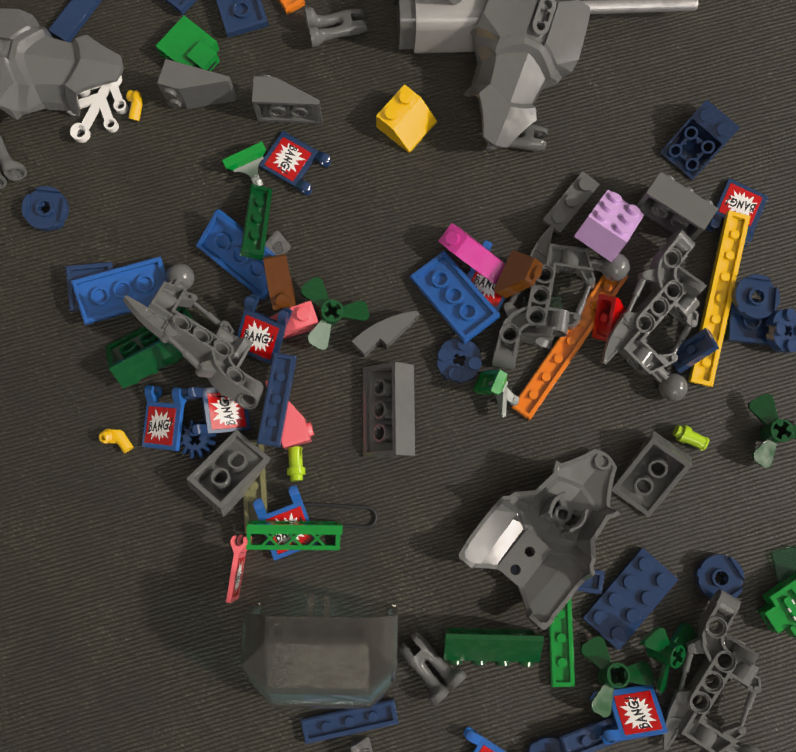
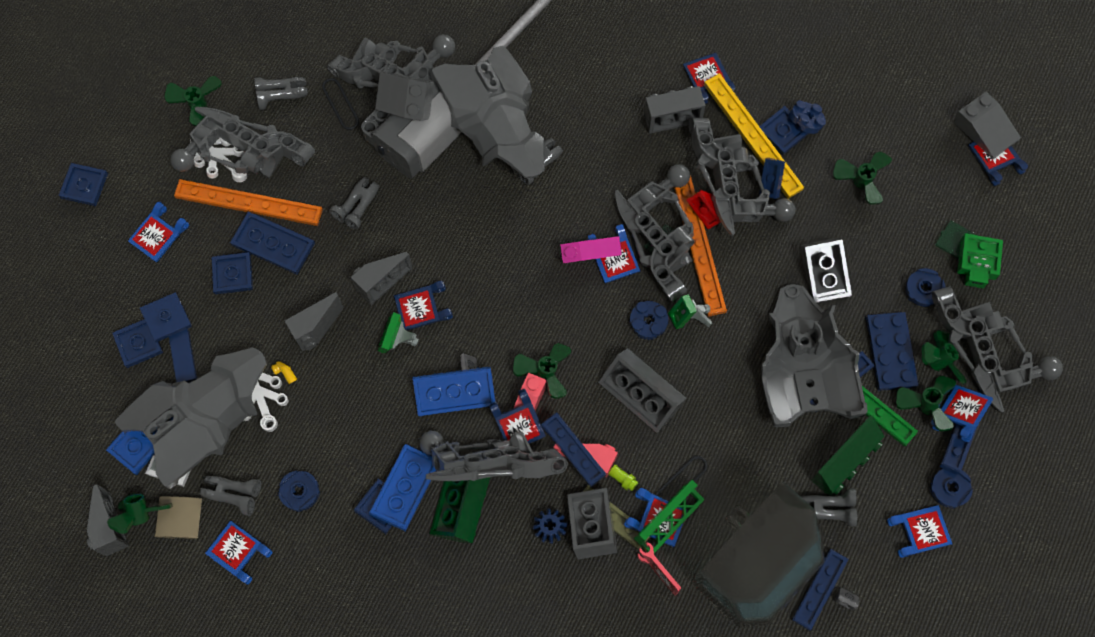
camera: 40 degrees left, 10 degrees down
(116, 437) = (498, 578): yellow arm -> none
(163, 420) = (519, 536): flag -> none
(189, 45) = (280, 303): green piece -> none
(219, 413) = (546, 491): flag -> none
(256, 222) = (443, 361): dark green tile -> none
(279, 281) = (499, 380): reddish brown slope -> none
(384, 332) = (589, 349): dark grey slope -> none
(405, 119) = (462, 214): yellow slope -> none
(454, 296) = (606, 286): blue tile -> none
(518, 274) = (630, 234): reddish brown slope -> none
(570, 202) = (611, 166): dark grey plate -> none
(609, 225) = (650, 155): lavender brick -> none
(685, 435) = (819, 229): lime animal -> none
(699, 139) = (643, 59): dark blue slope -> none
(744, 303) = (769, 123): dark blue plate -> none

